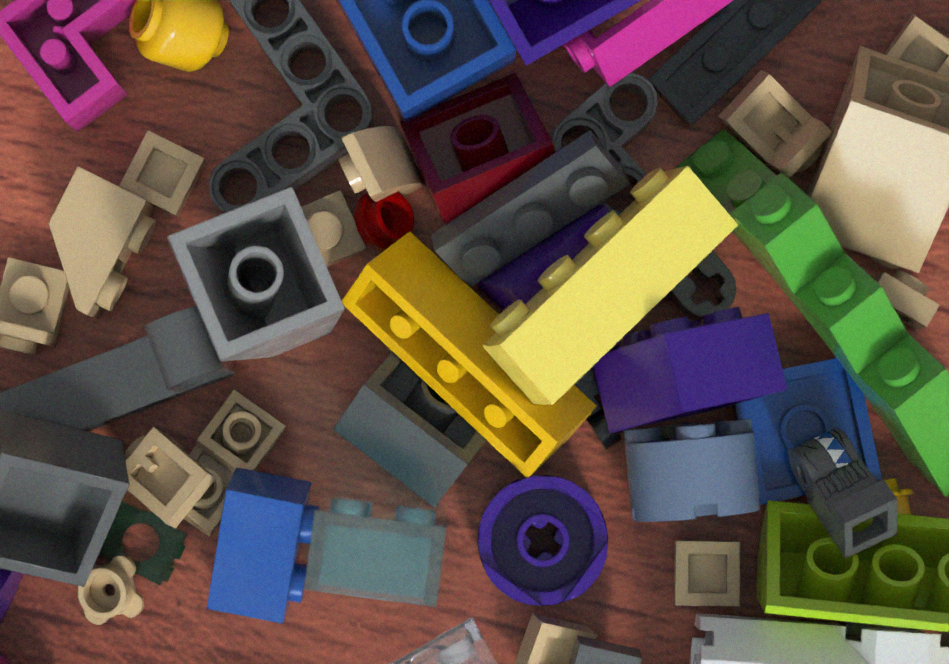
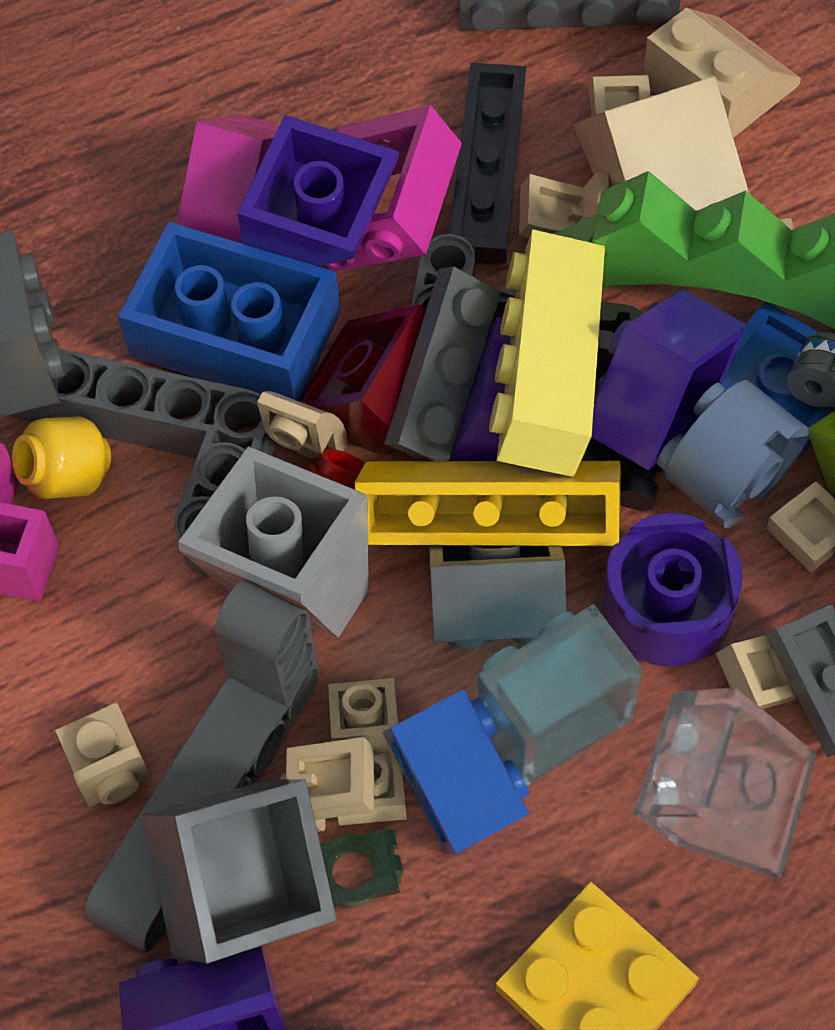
camera: 40 degrees left, 25 degrees down
(94, 236) = (114, 653): tan slope -> none
(126, 600) = (379, 920): tan plate -> none
(163, 173) = (135, 574): tan plate -> none

